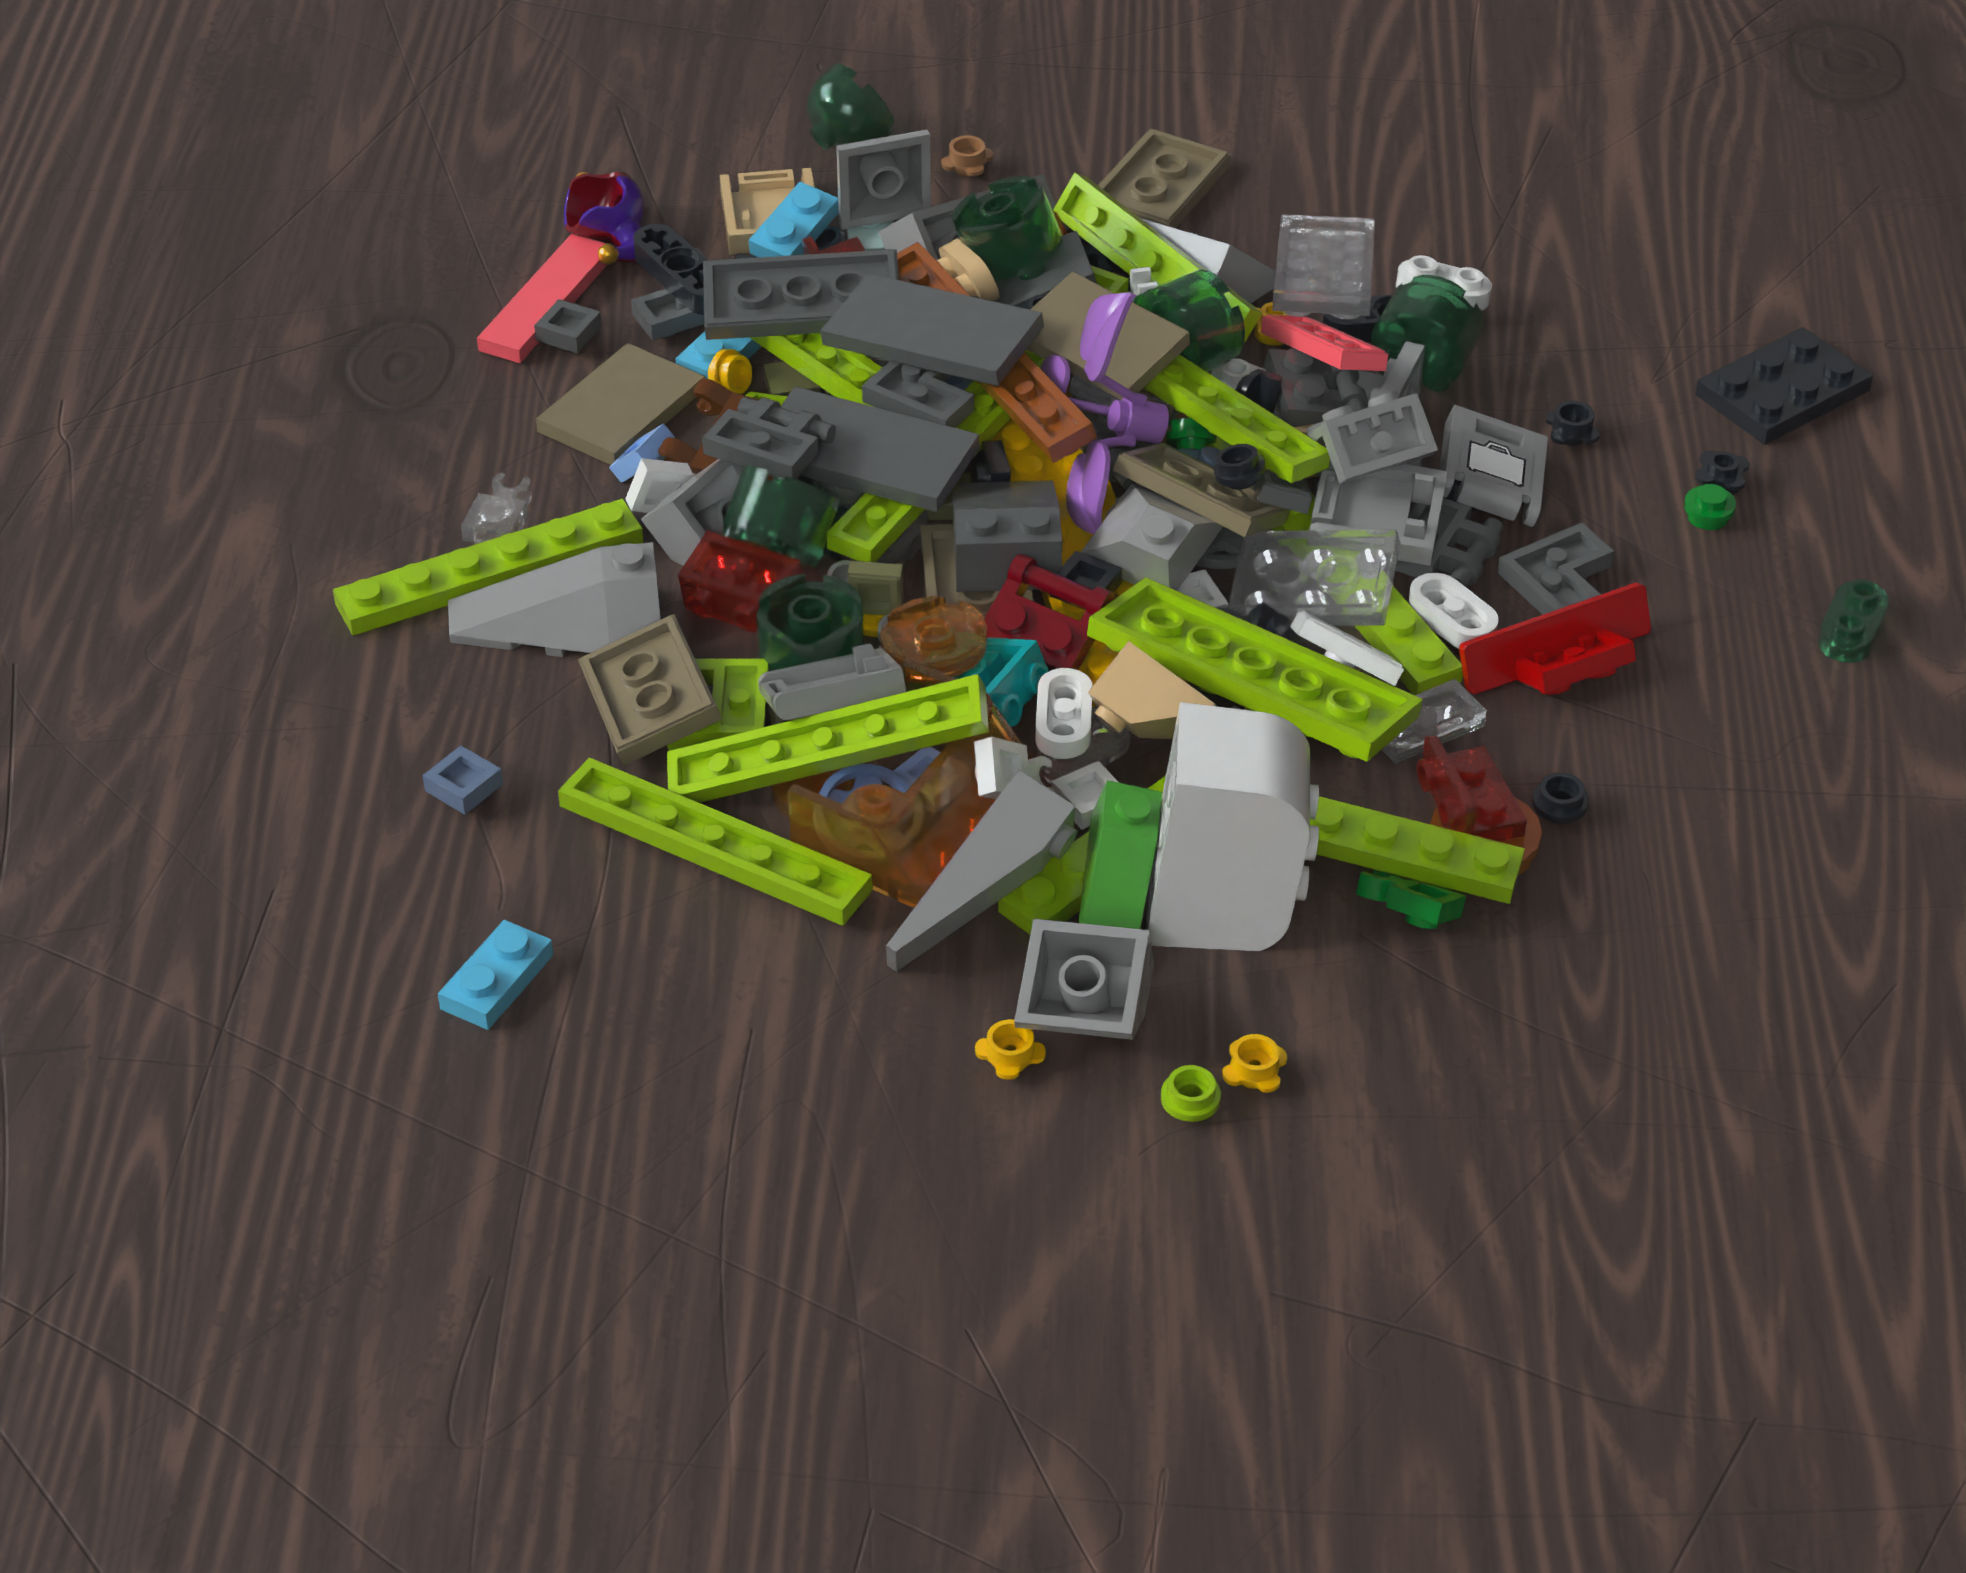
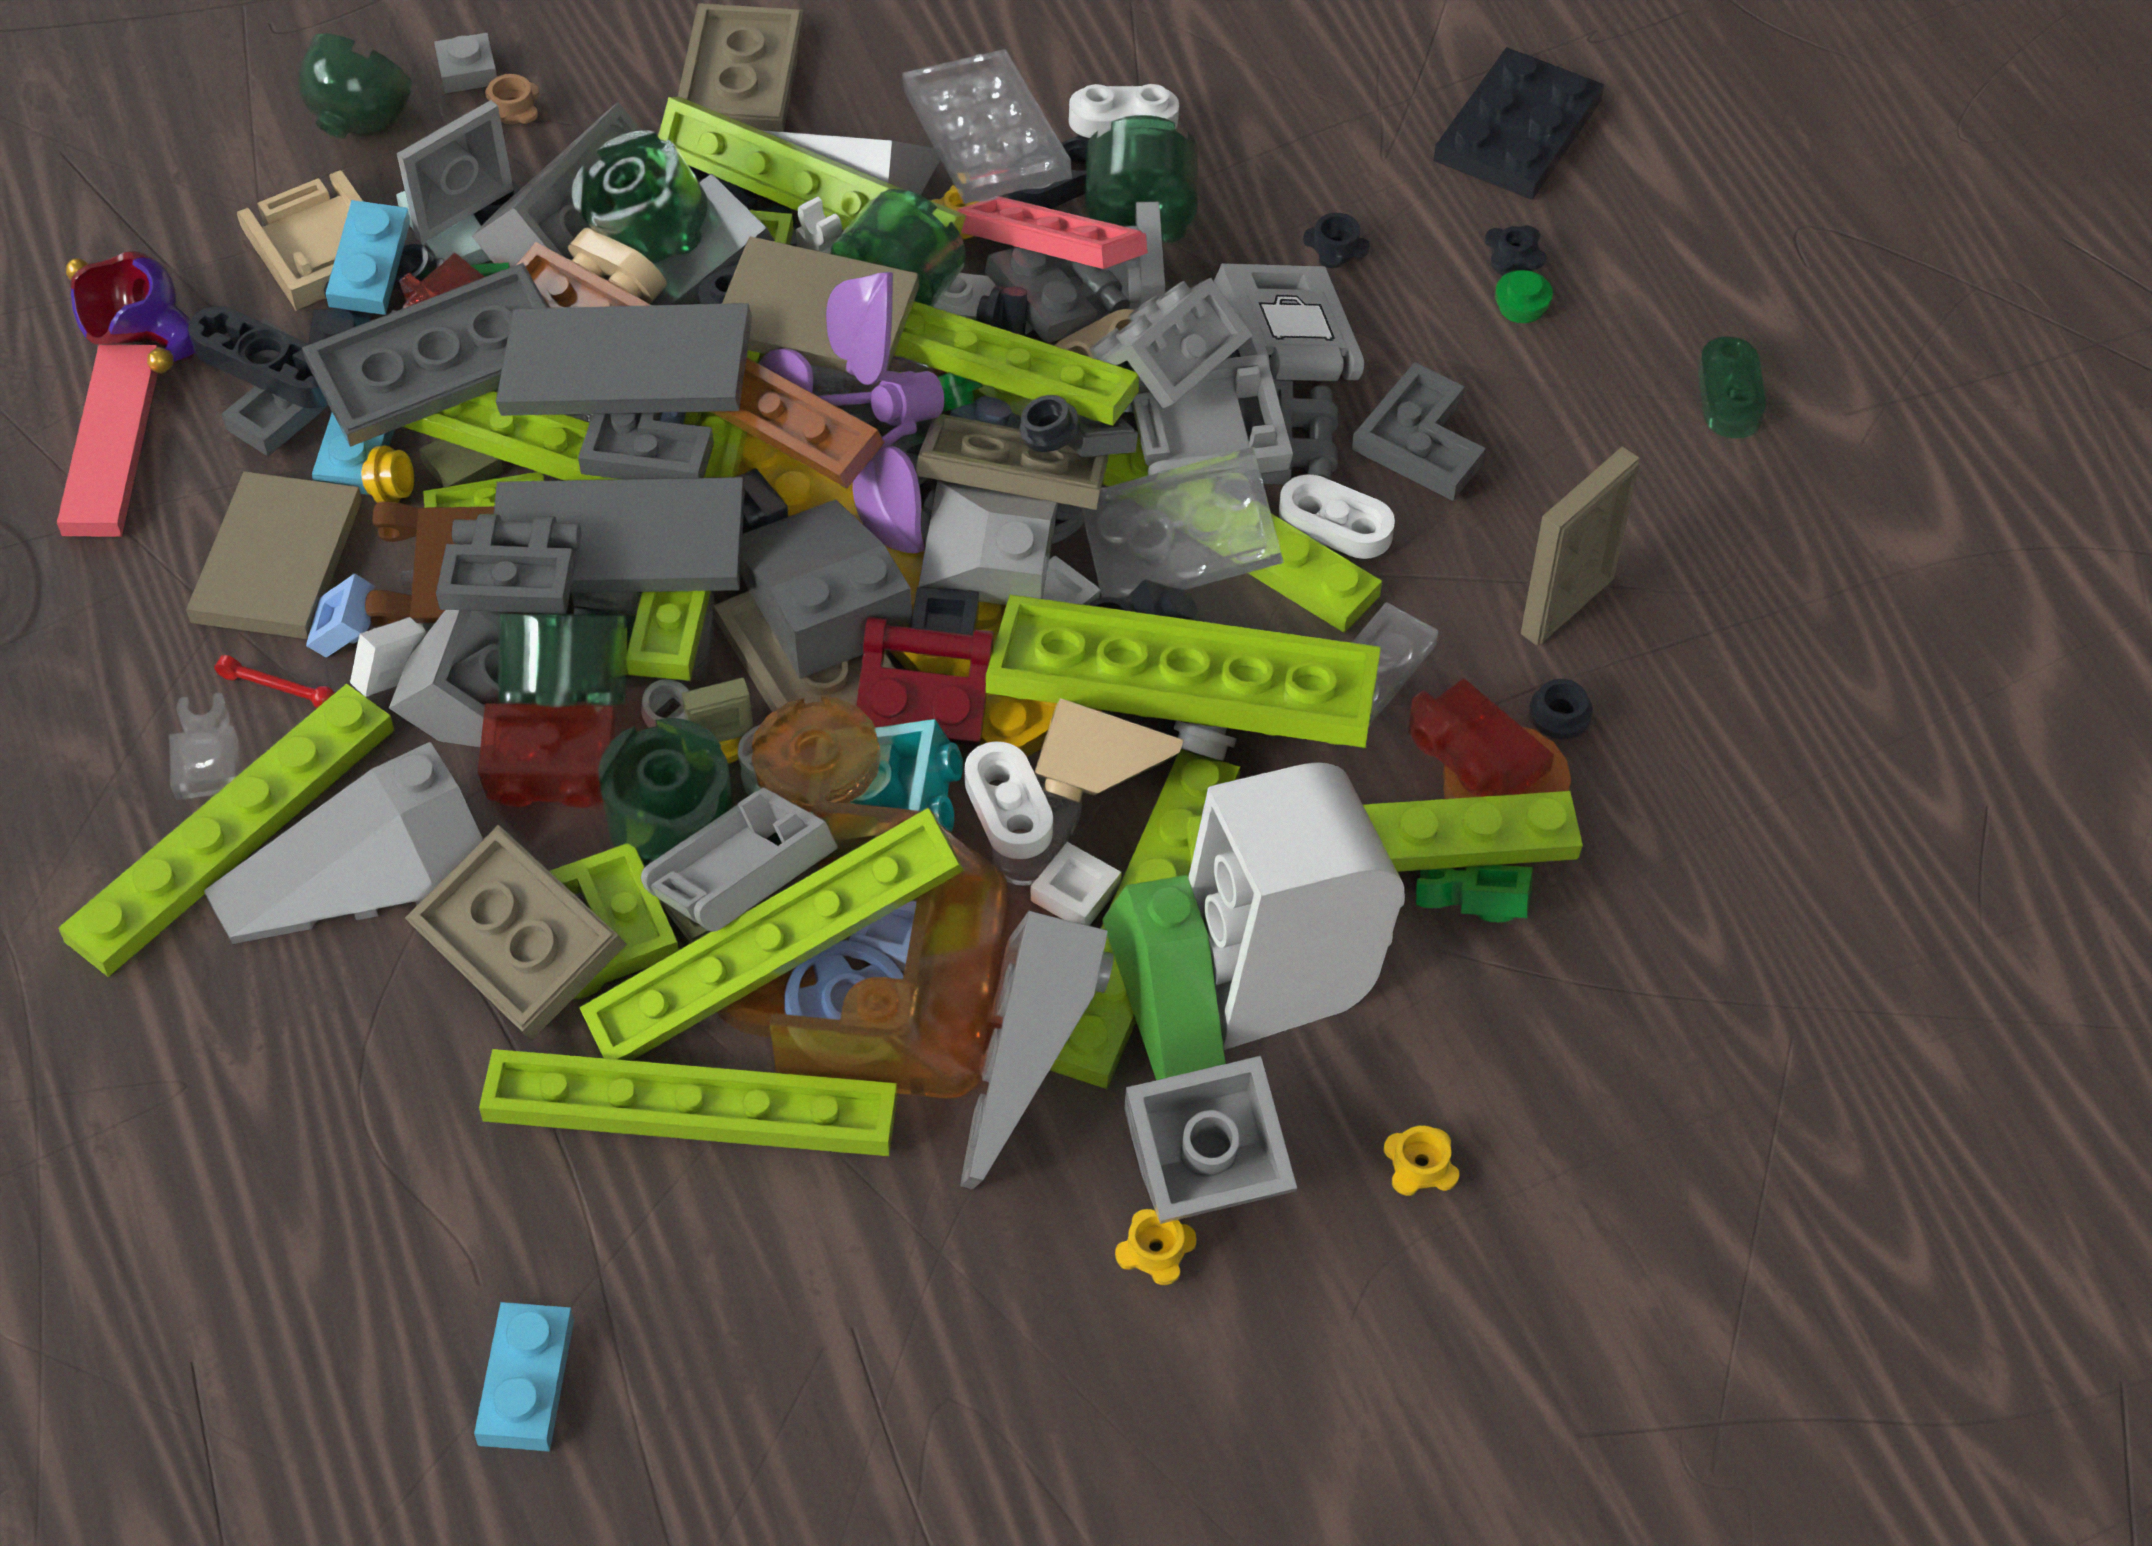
camera: 25 degrees left, 10 degrees up
(462, 779) = (353, 1132): sand blue plate -> none
(547, 467) = (230, 669): none -> red hinge
(568, 326) = (160, 471): dark grey plate -> none
(948, 121) = (465, 62): none -> light grey plate
(998, 763) = (992, 901): white plate -> none
(1191, 1094) = (1381, 1210): lime plate -> none
(1346, 648) = (1267, 609): white plate -> none
(1560, 645) = (1472, 524): red bracket -> none
(1626, 673) = (1579, 546): none -> dark tan tile

